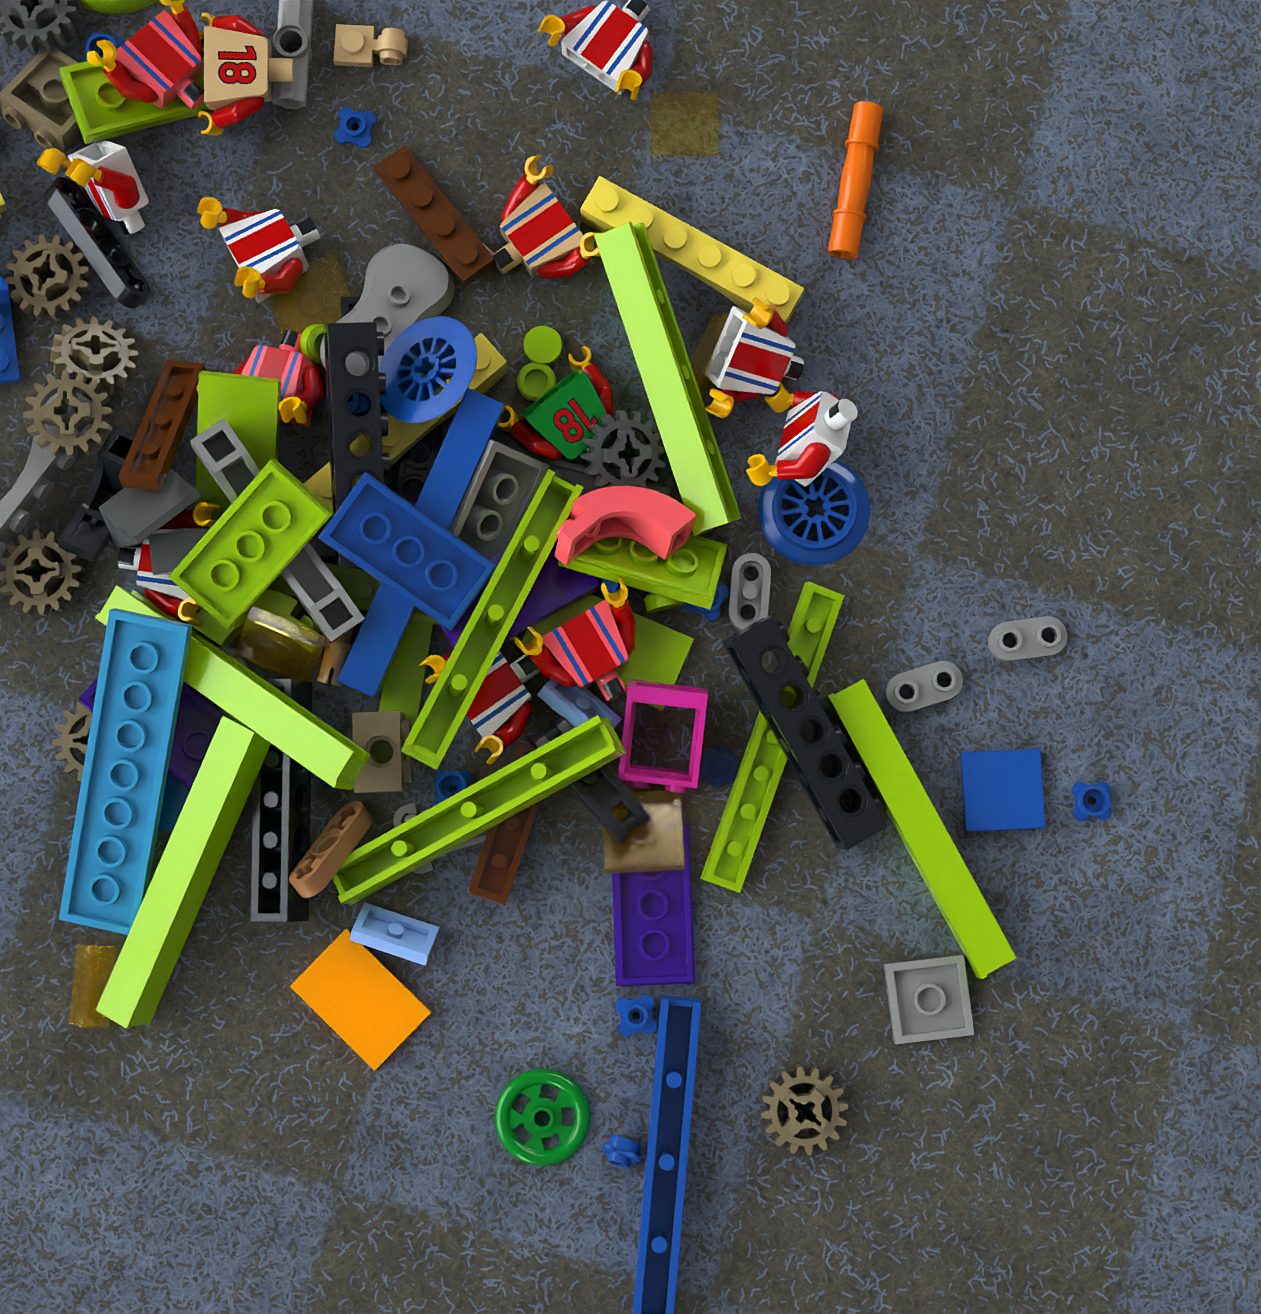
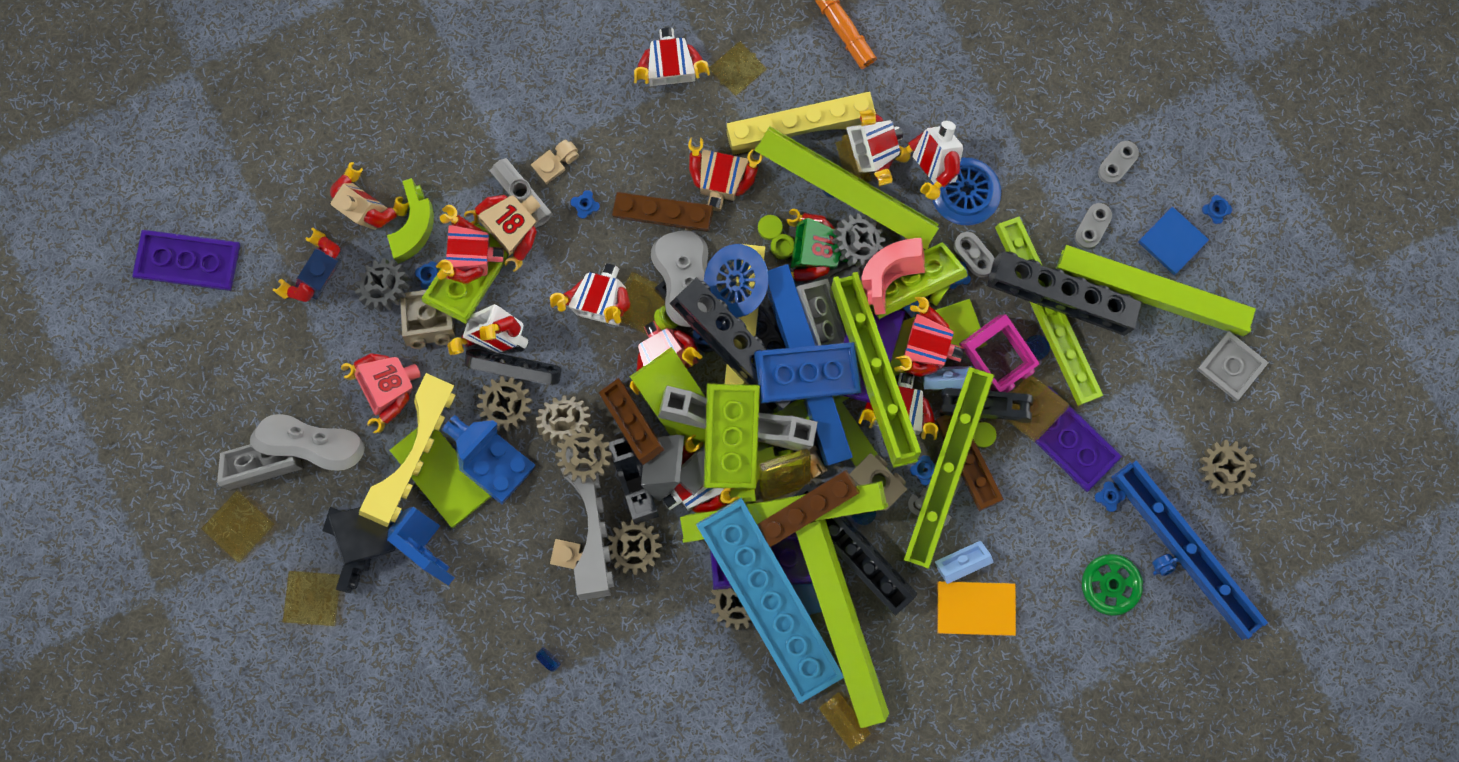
camera: 40 degrees left, 5 degrees down
(254, 707) = (808, 508): none -> reddish brown plate
(331, 849) = (903, 562): medium nougat beam -> none
(559, 810) = (984, 435): none -> lime tile

